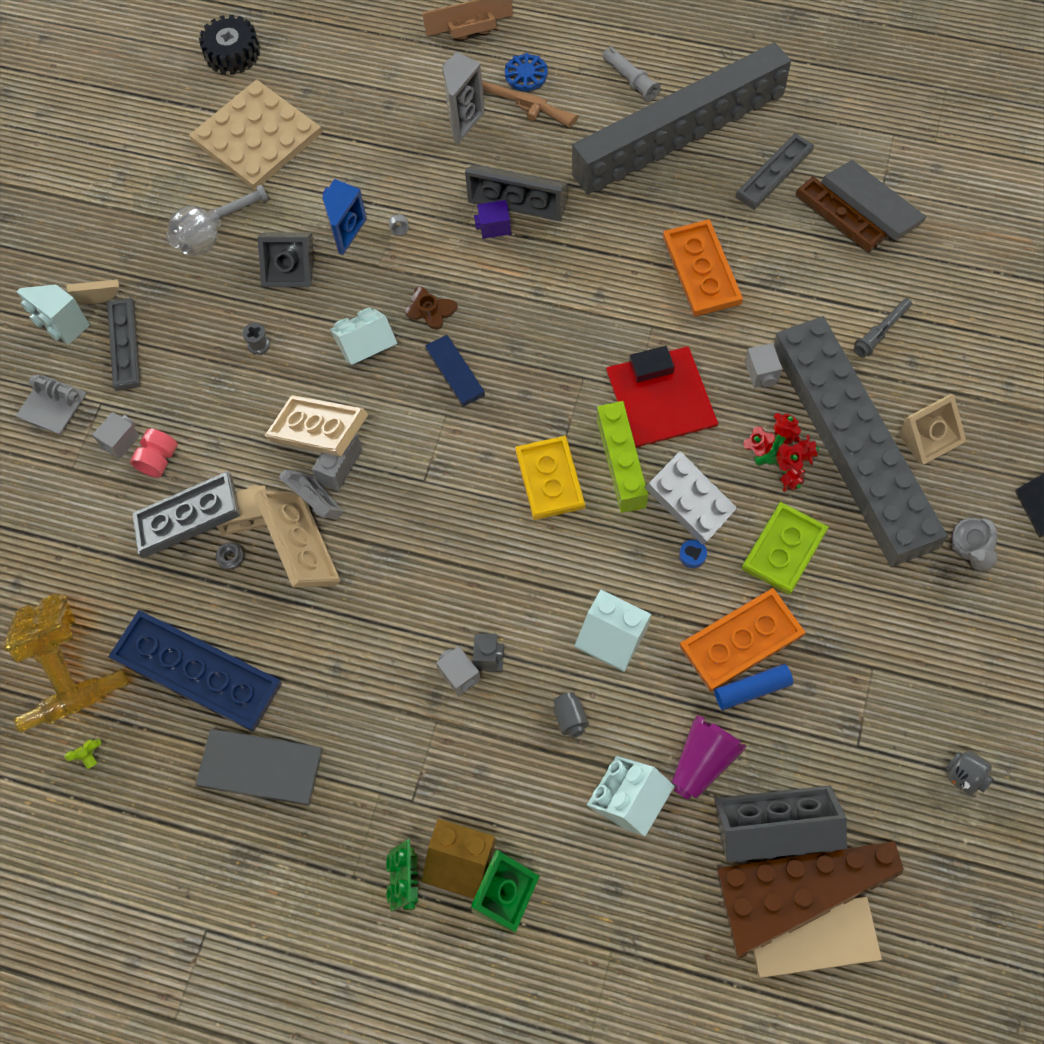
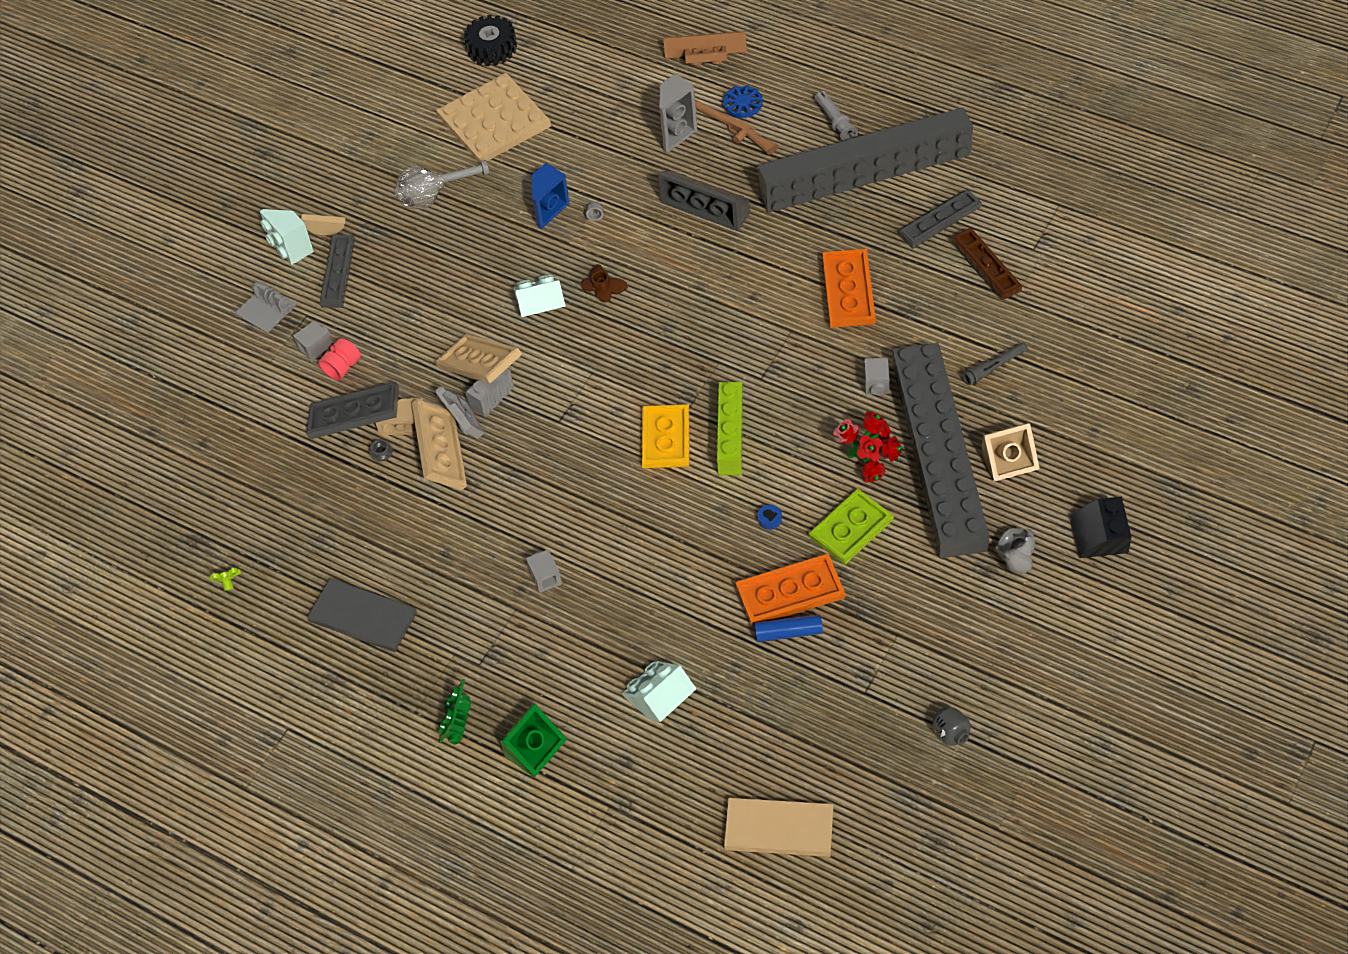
camera: 15 degrees right, 10 degrees down
(39, 633) = (212, 479): clear yellow plate -> none
(195, 670) = (330, 532): dark blue plate -> none
(256, 337) = (447, 280): dark grey bush -> none
(286, 259) = (490, 223): dark grey slope -> none
(455, 370) = (609, 337): dark blue tile -> none
(457, 858) = (500, 707): pearl gold slope -> none
(488, 653) = (572, 561): dark grey brick -> none
(493, 219) = (677, 219): dark purple brick -> none
(570, 715) = (627, 621): dark grey brick -> none
(613, 630) = (682, 562): light aqua slope -> none
(662, 395) = (781, 386): red piece -> none
(690, 497) = (778, 469): plate -> none
(704, 757) = (728, 671): magenta cone -> none
(781, 823) = (776, 736): dark grey slope -> none
(793, 891) = (775, 787): reddish brown wing -> none
(873, 199) = (1019, 255): dark grey tile -> none

